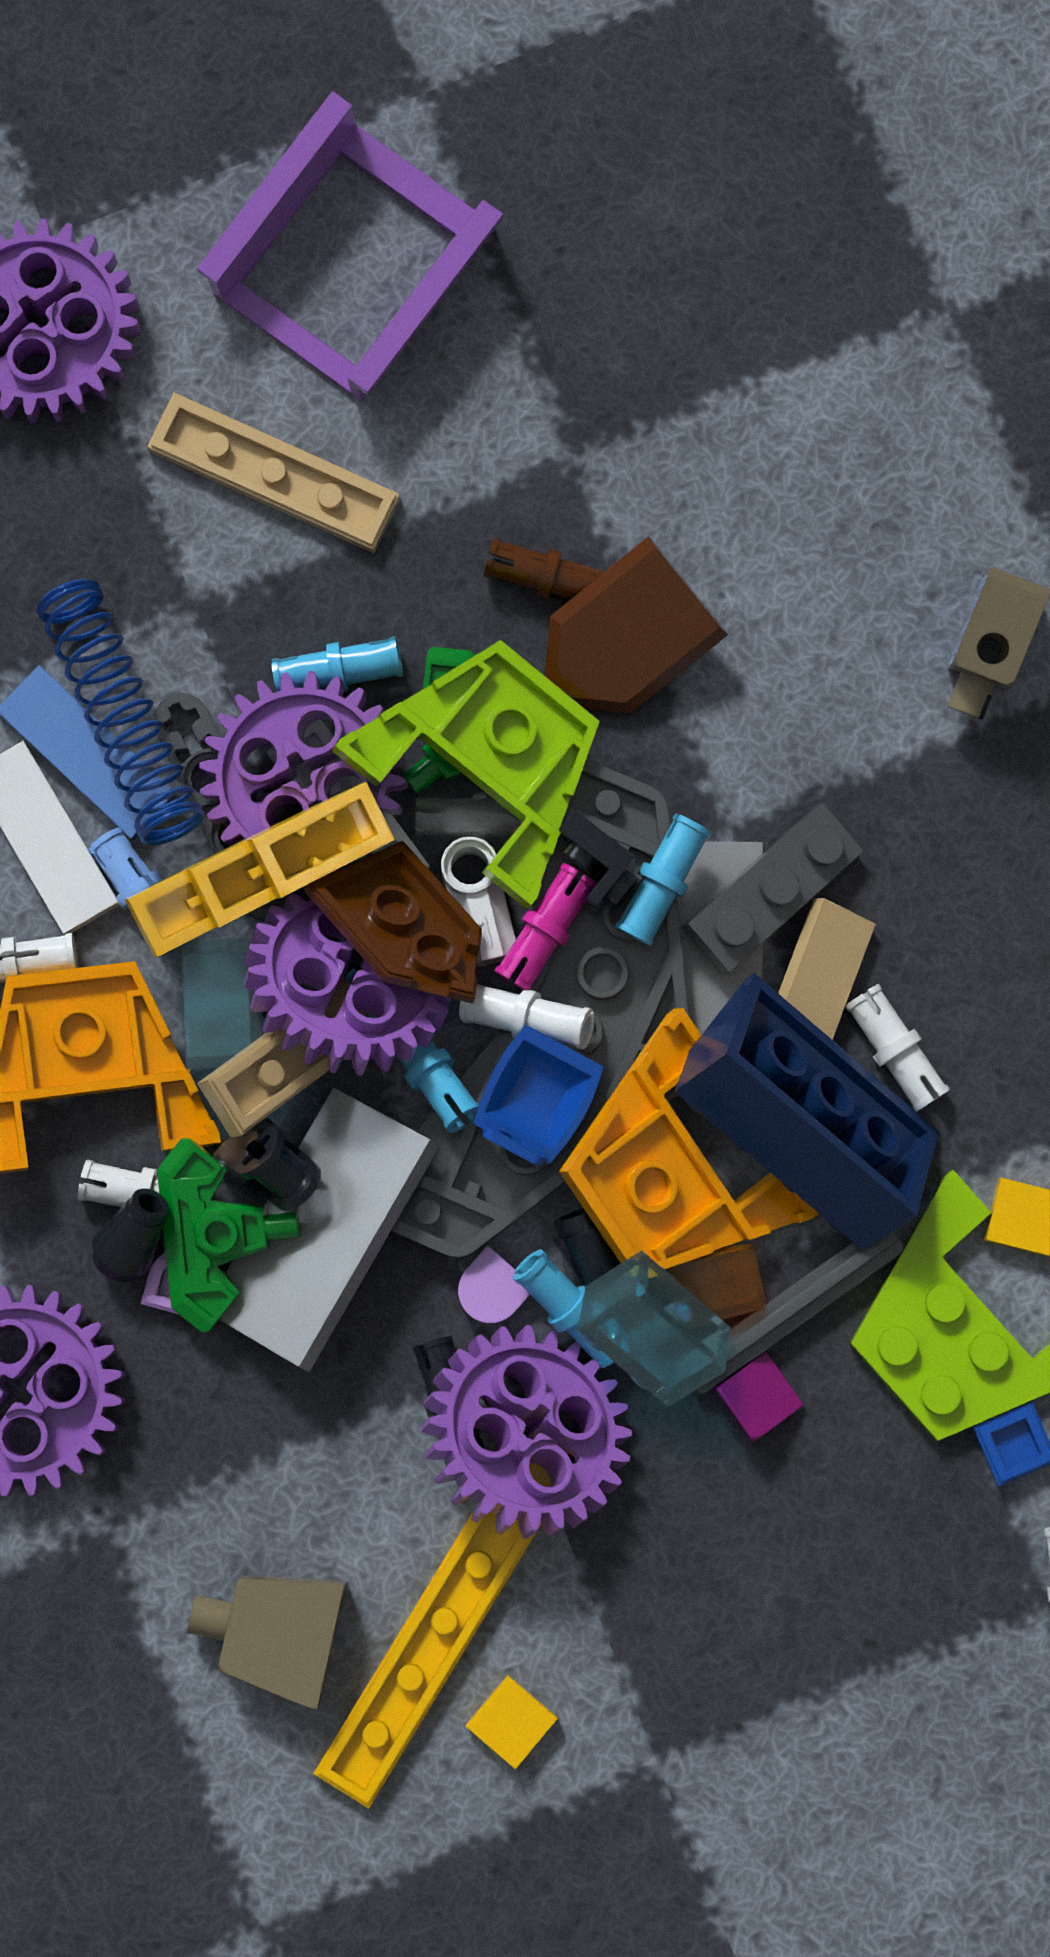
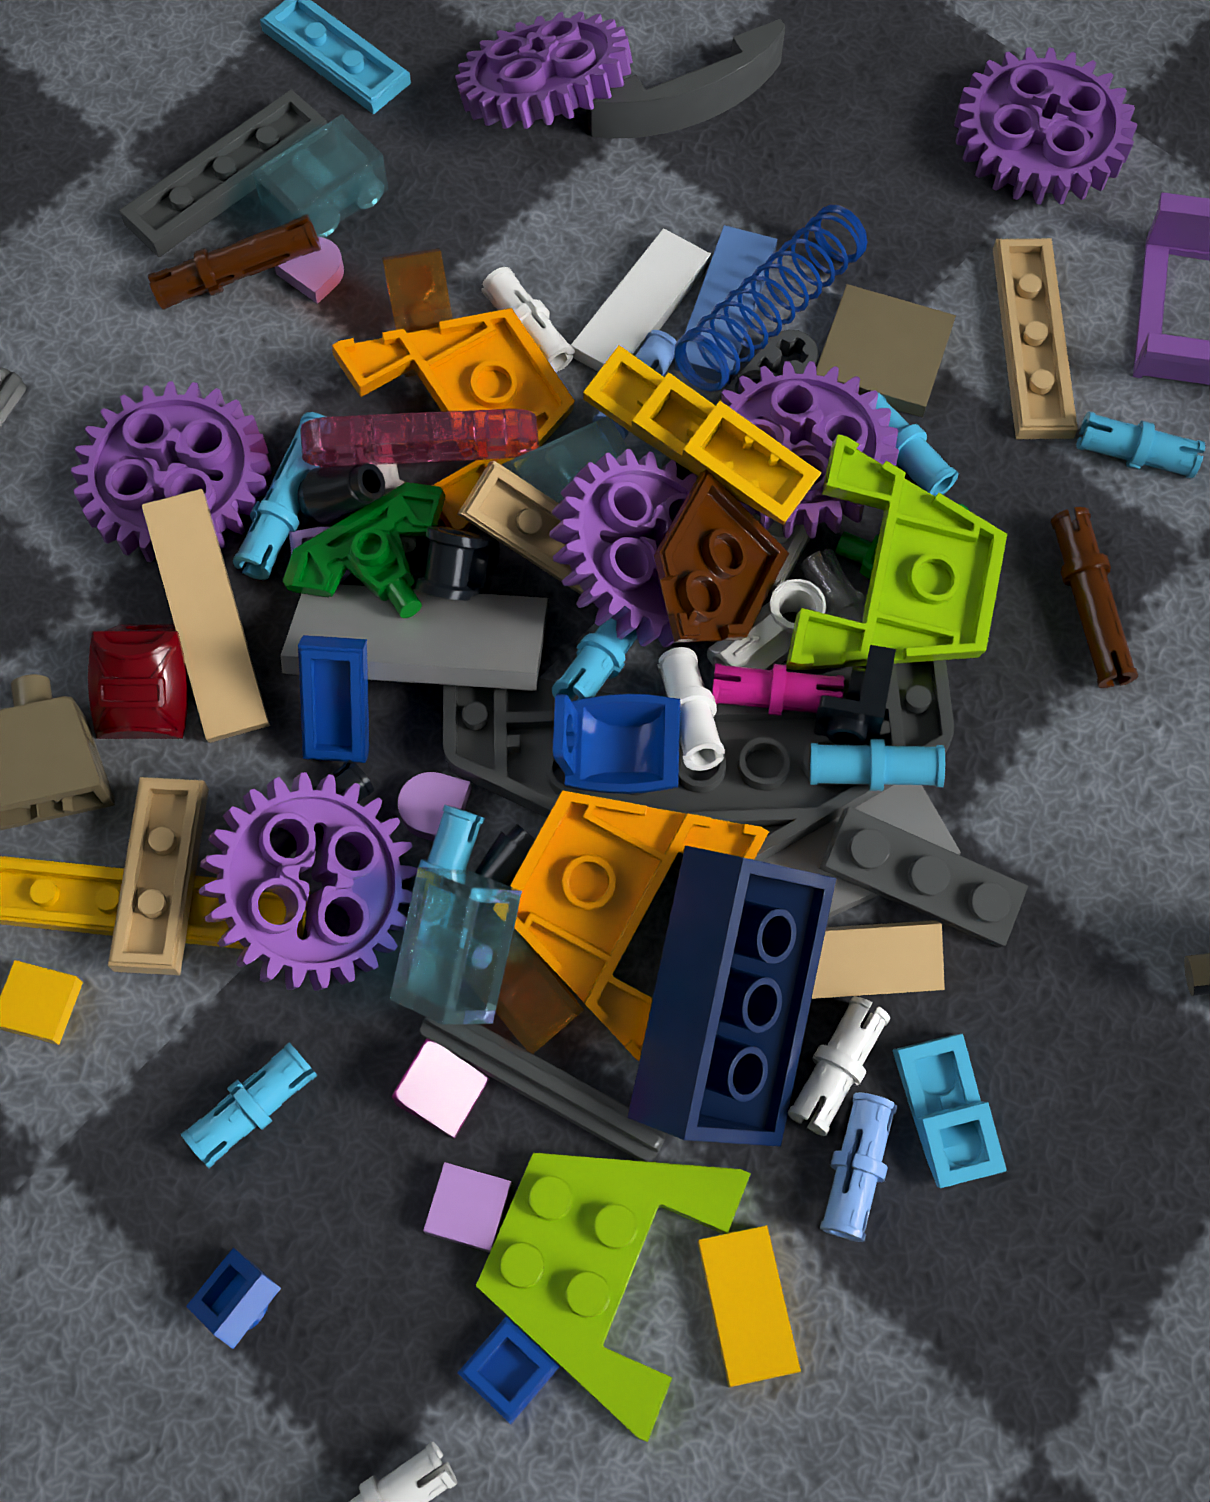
camera: 65 degrees right, 15 degrees down
(108, 1299) = (276, 512): none -> medium azure pin
(120, 1135) = (419, 437): none -> clear pink beam
(203, 1420) = (205, 615): none -> tan tile
(217, 626) = (888, 346): none -> dark tan tile
(237, 1511) = (138, 682): none -> dark red piece
(357, 1335) = (334, 698): none -> blue tile
(445, 445) = (1140, 445): none -> medium azure pin
(449, 1564) = (159, 876): none -> tan tile
(628, 633) = (1077, 651): reddish brown tile -> none
(695, 1568) = (248, 1105): none -> medium azure pin
(856, 1645) = (233, 1298): none -> blue plate
(868, 1418) = (467, 1207): none -> lavender tile
(975, 975) = (948, 1111): none -> medium azure slope
(988, 1076) = (858, 1167): none -> light blue pin

